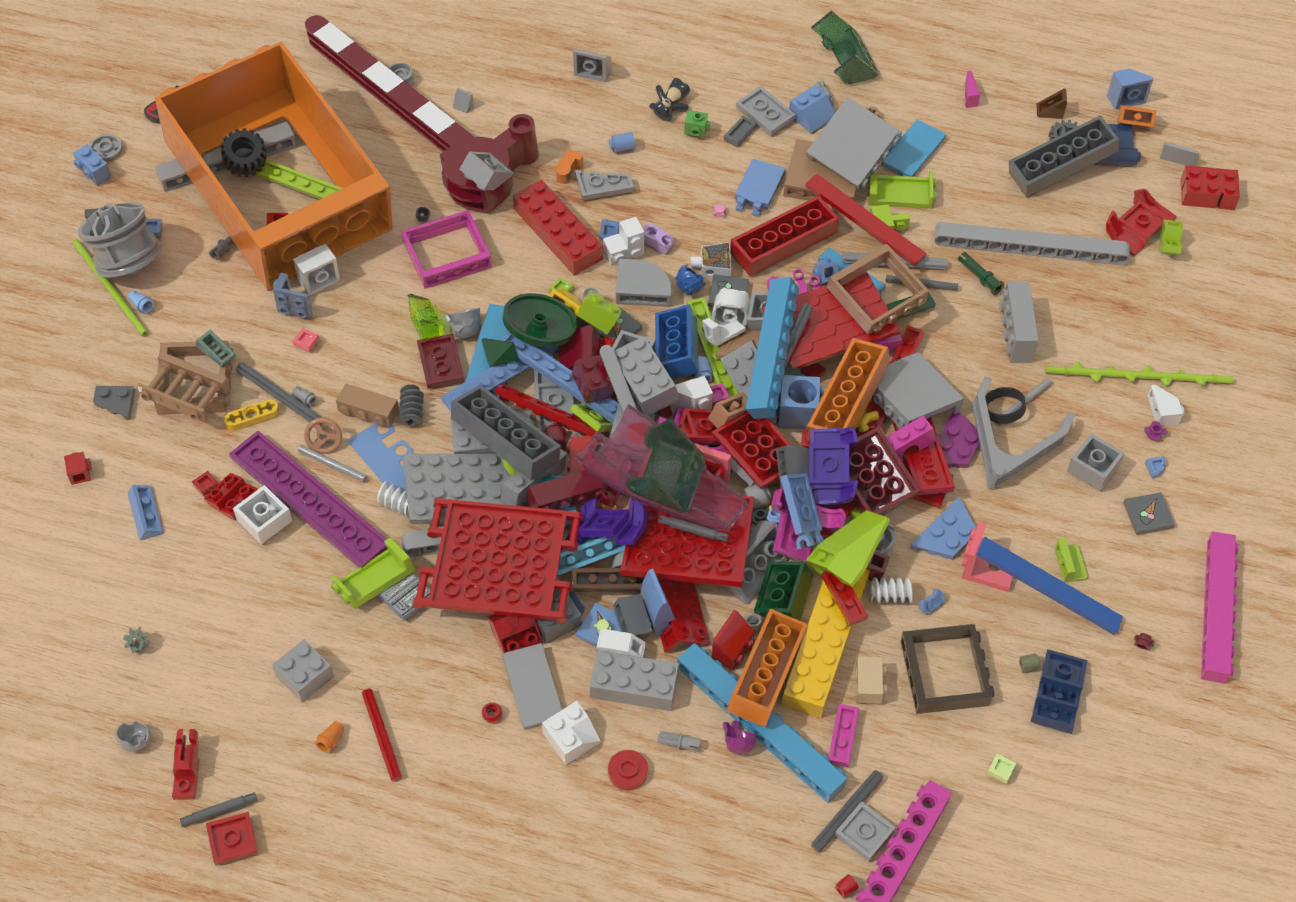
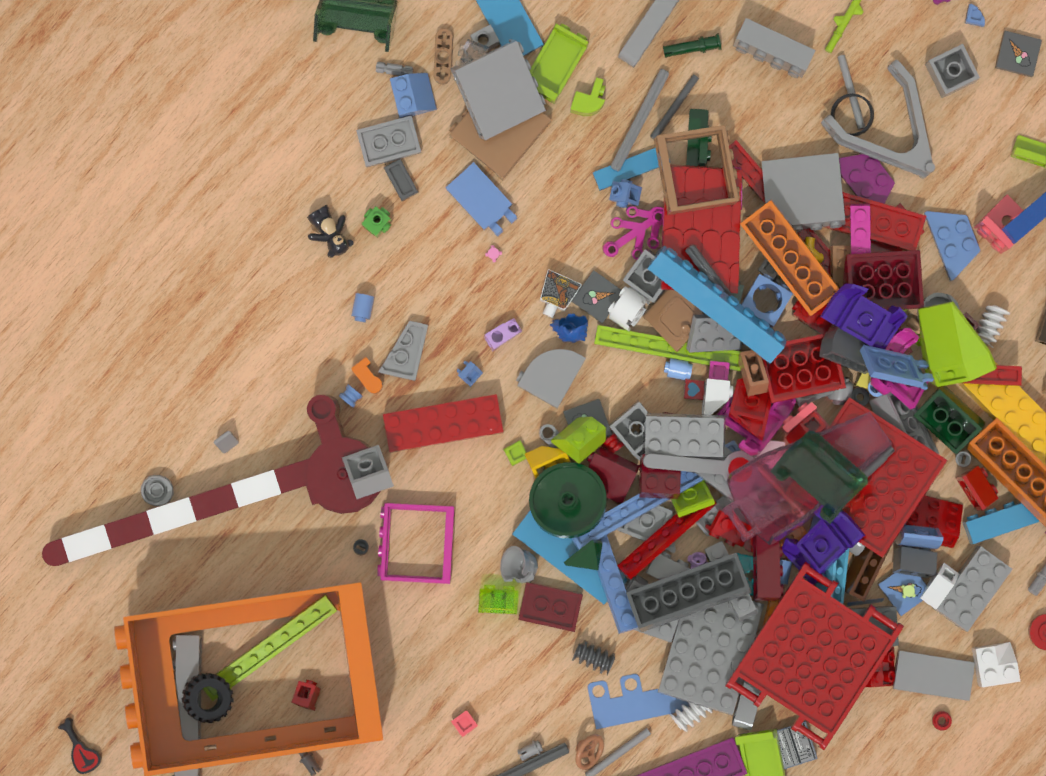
camera: 60 degrees left, 30 degrees up
(291, 301) = (403, 726): sand blue bracket -> none
(316, 269) = (390, 682): white brick -> none
(367, 405) = (572, 697): medium nougat brick -> none
(545, 161) = (350, 396): none -> medium blue wheel
(558, 434) = (693, 541): dark red head -> none
(591, 65) = (242, 286): light grey slope -> none
(627, 243) = (497, 370): white brick -> none
(677, 341) = (646, 380): blue brick -> none
(720, 335) = (653, 329): white bracket -> none
(784, 235) = (563, 210): red brick -> none
(865, 220) = (585, 124): red tile -> none
(932, 601) = (1015, 295): medium blue piece -> none

